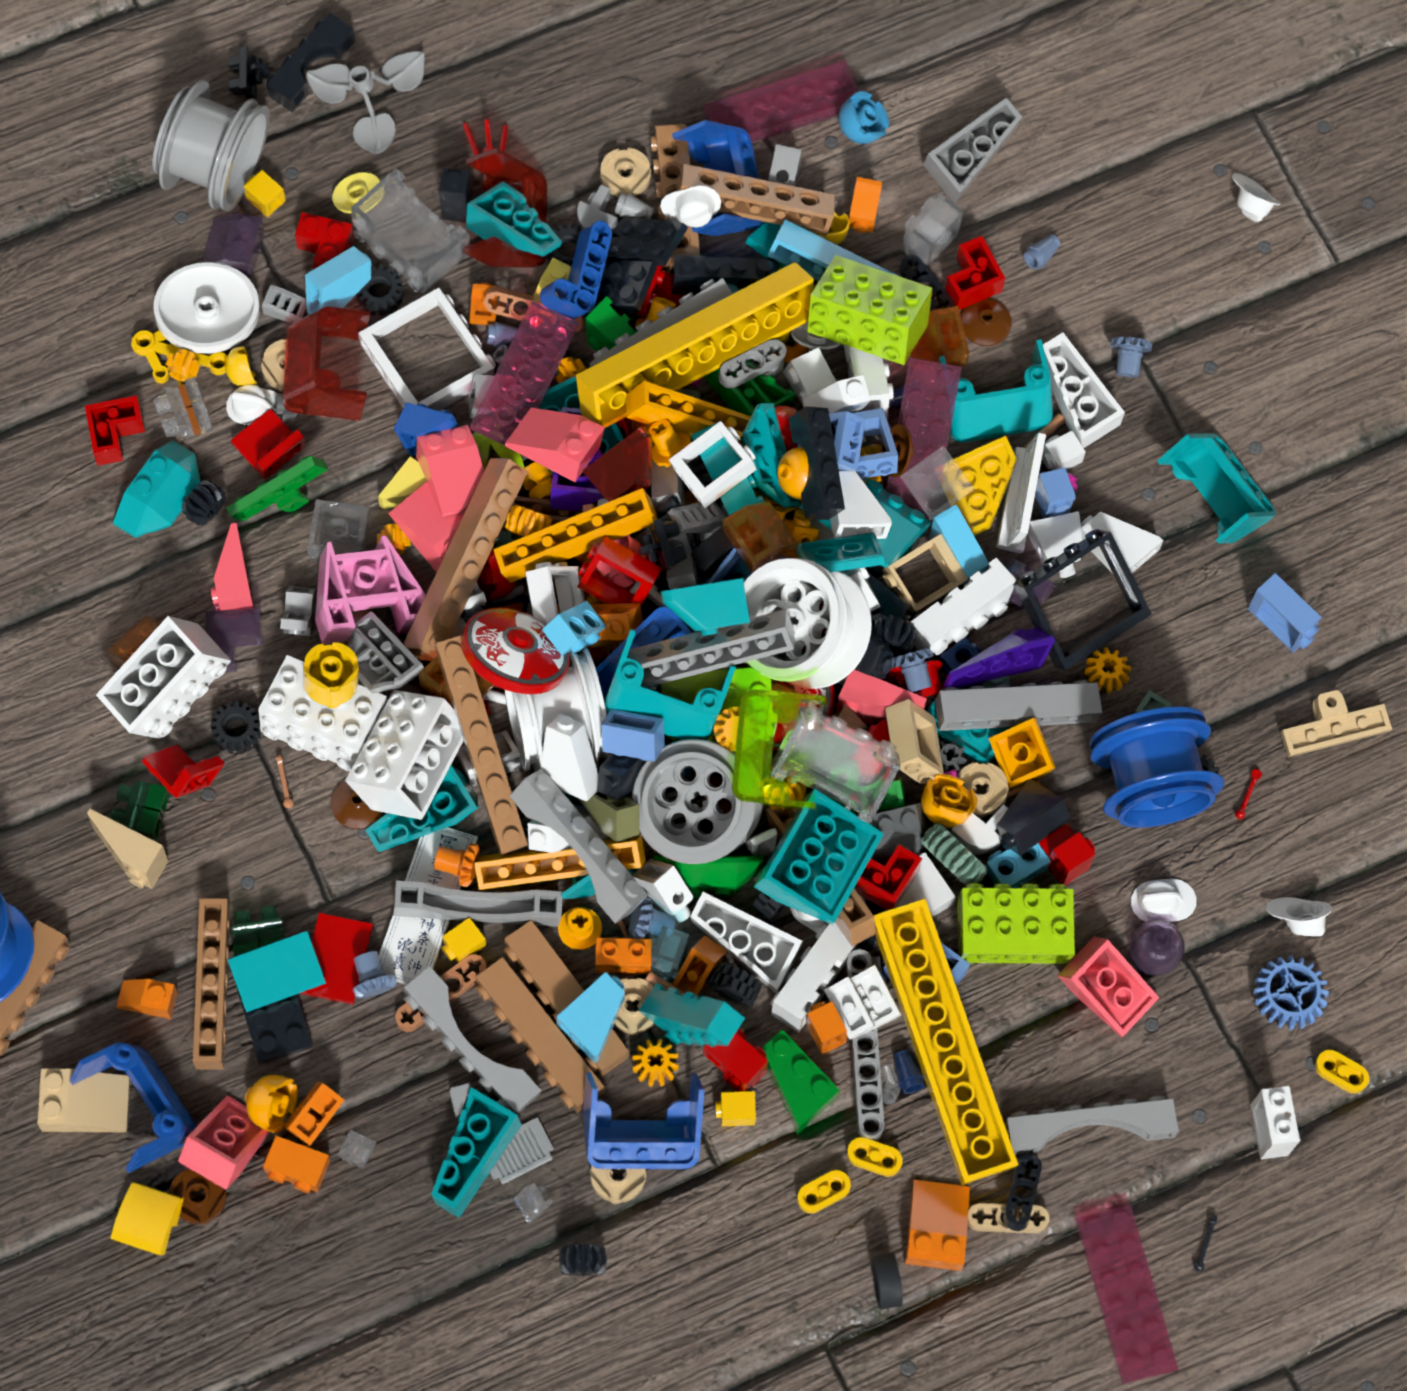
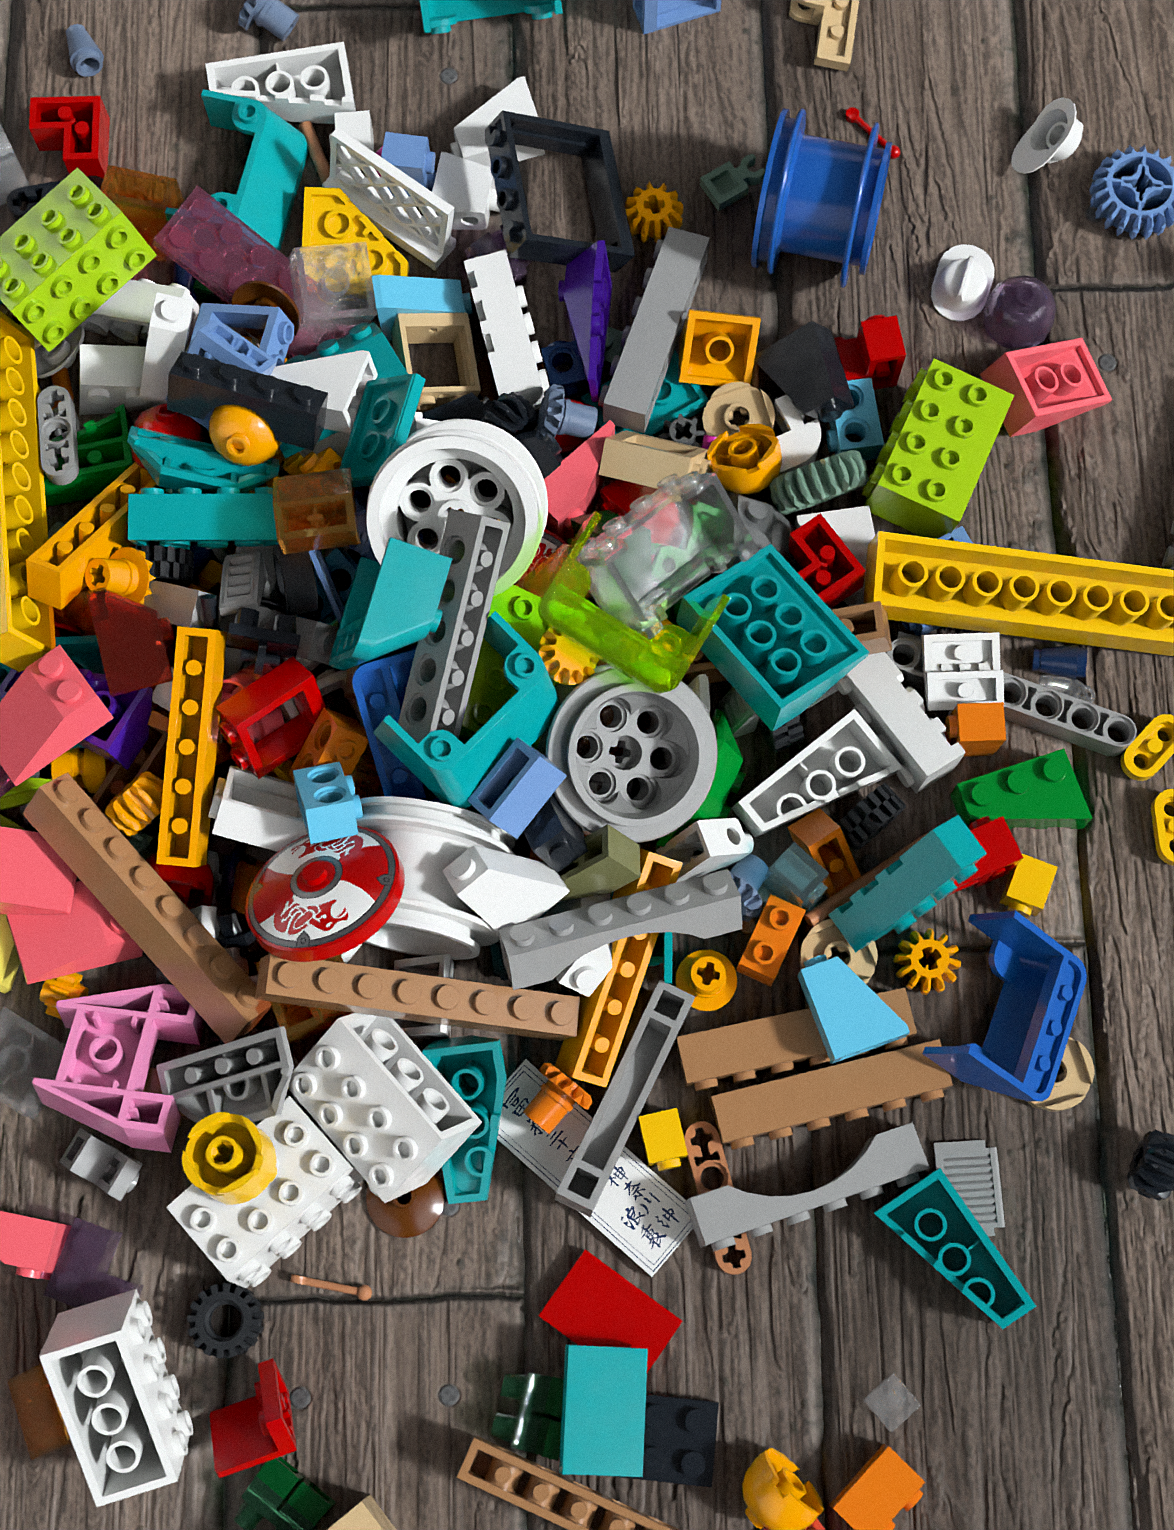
camera: 60 degrees left, 5 degrees up
(313, 1113) = (820, 1442): orange brick -> none
(372, 976) = (662, 1281): sand blue gear -> none
(459, 1098) = (874, 1234): light grey slope -> none
(531, 1202) = (1050, 1198): clear tile -> none
(724, 482) = (192, 563): white window -> none
(986, 332) = (155, 151): reddish brown dish -> none

